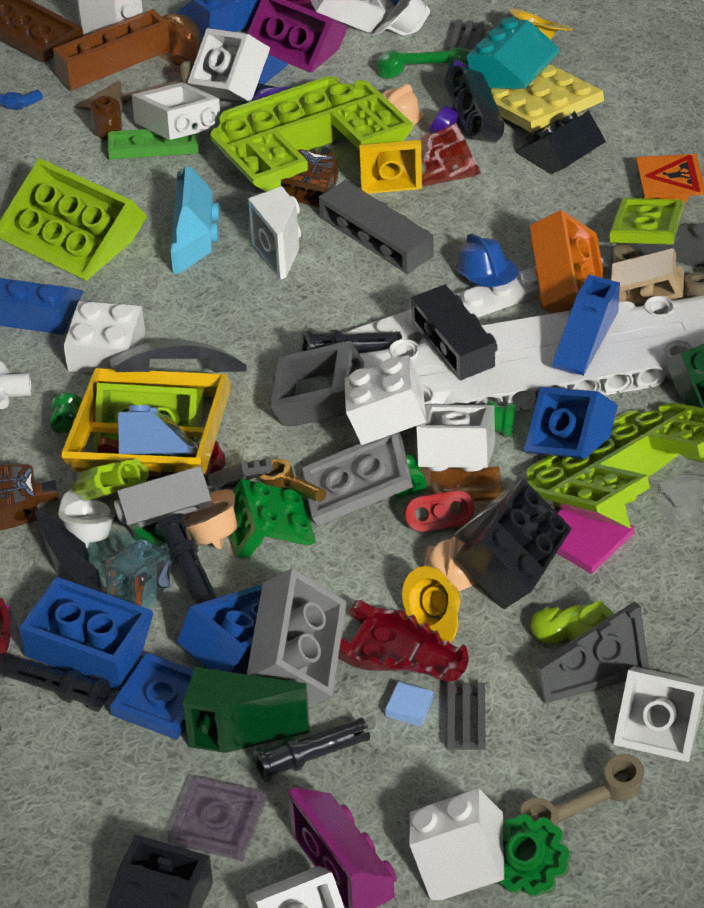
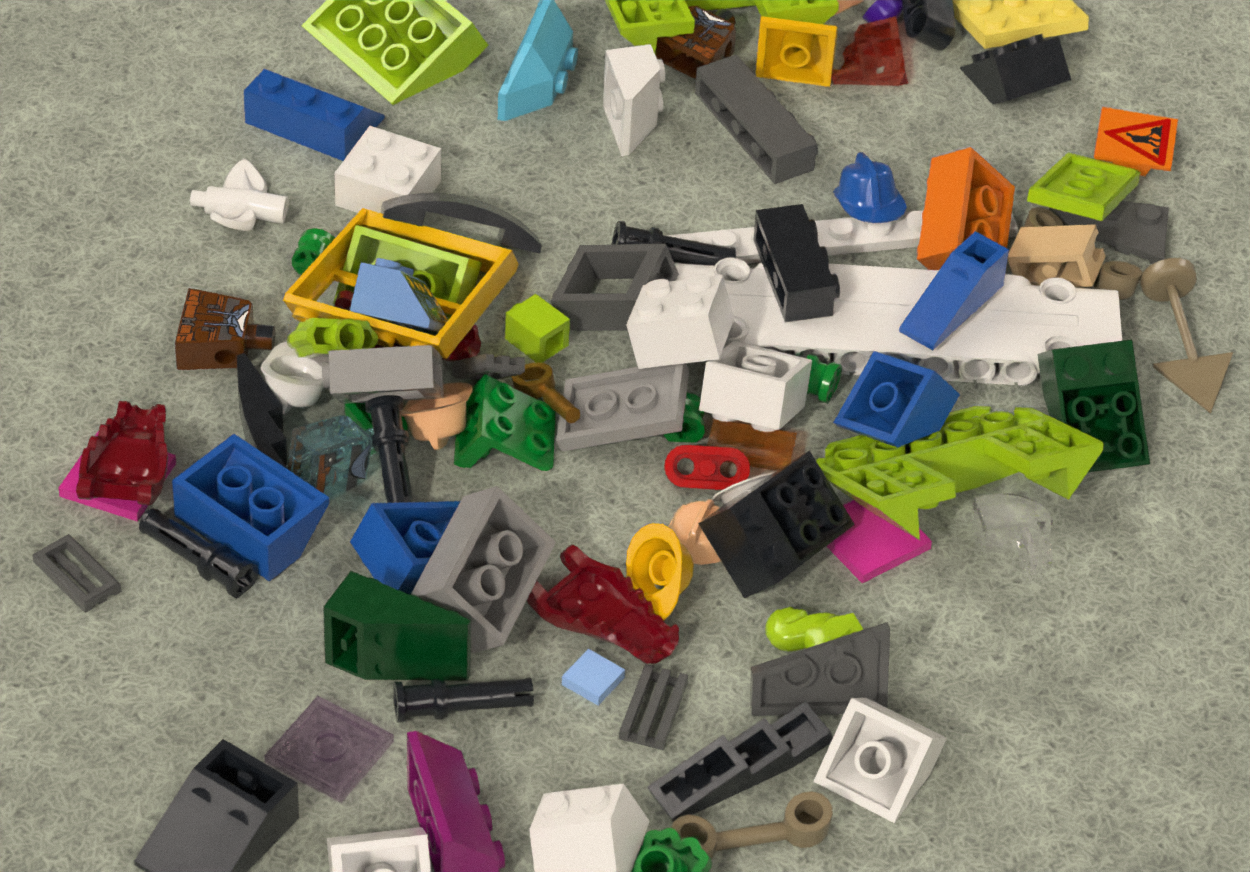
camera: 10 degrees right, 0 degrees up
(155, 696) = (297, 595): blue plate -> none
(265, 432) = (537, 328): none -> lime brick
(552, 745) = (737, 765): none -> black slope

